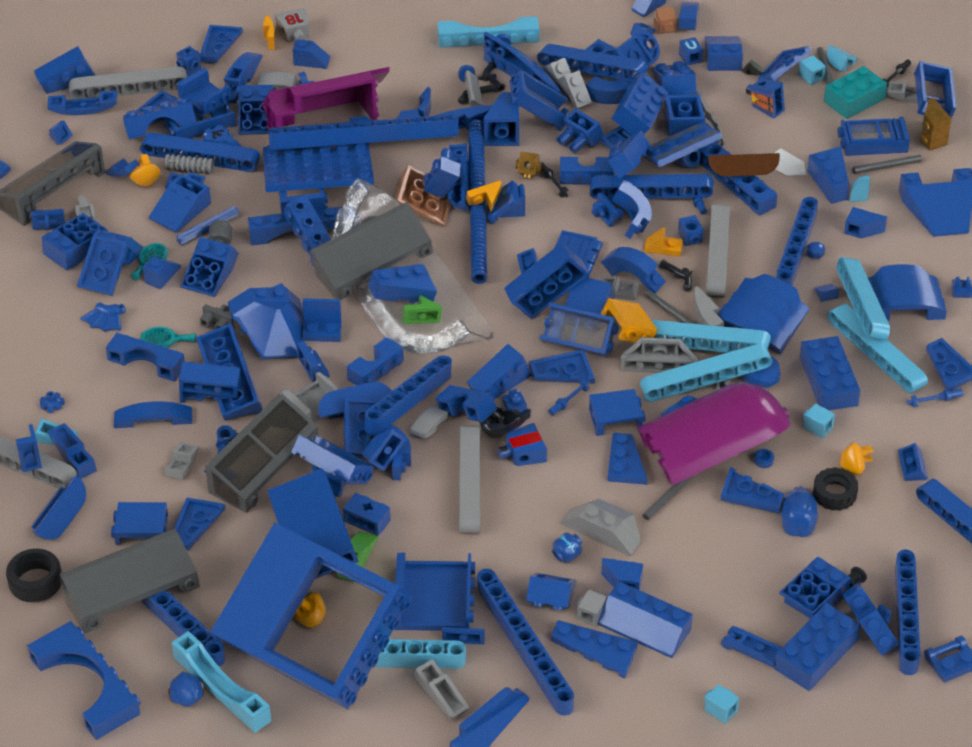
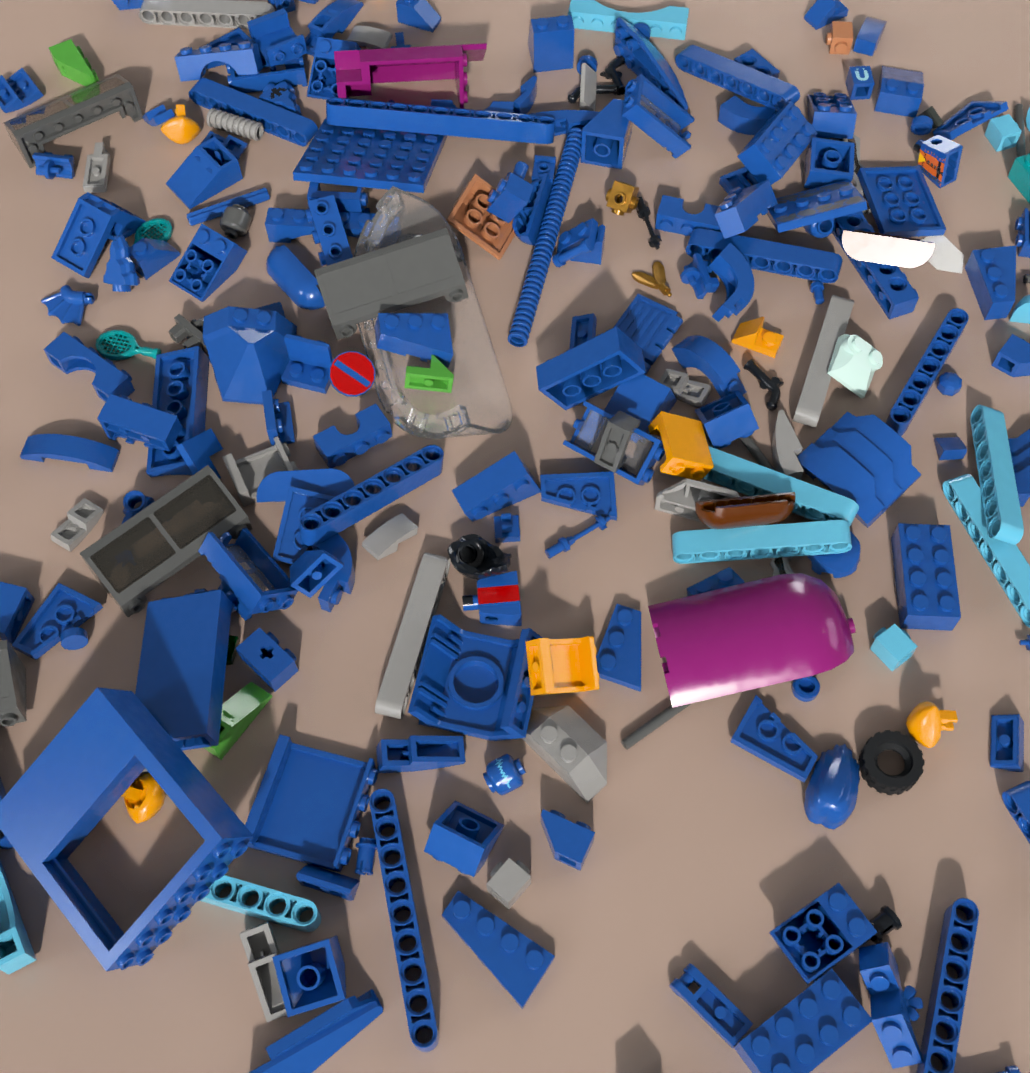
camera: 15 degrees right, 15 degrees up
(28, 141) = (72, 63): none -> bright green slope
(60, 132) = (110, 60): blue tile -> none
(70, 241) = (59, 196): blue slope -> none
(82, 106) = (147, 32): blue slope -> none
(143, 280) = (120, 268): none -> blue rock
(213, 530) = (74, 638): none -> blue tile
(261, 392) = (198, 450): none -> blue tile
(284, 266) = (294, 278): none -> blue brick
(358, 322) = (352, 373): none -> red piece
(433, 60) = (551, 43): none -> blue slope
(474, 680) = (311, 976): none -> blue slope
(476, 403) = (448, 527): blue arch -> none
(484, 610) = (365, 856): none -> blue pin
(487, 192) = (559, 228): light orange slope -> none
(501, 548) = (419, 753): none -> blue slope
(529, 497) = (473, 683): none -> blue panel
(570, 82) = (703, 98): light grey arch -> none
(573, 219) = (656, 281): none -> pearl gold piece
(581, 324) = (615, 441): none -> dark grey panel
(583, 128) = (703, 162): blue brick -> none
(587, 472) = (562, 665): none -> light orange panel
(615, 408) = (630, 571): blue panel -> none
(637, 48) = (795, 69): blue tile -> none
(638, 27) = (808, 47): blue slope -> none
(645, 619) = (574, 923): slope -> none
(659, 299) = (727, 419): none -> blue slope
(689, 352) = (745, 511): none -> reddish brown brick
(690, 230) = (796, 325): blue brick -> none
(741, 246) = (854, 363): none -> light aqua slope
(746, 130) = (901, 201): none -> blue plate
(747, 74) = (921, 125): none -> blue tile

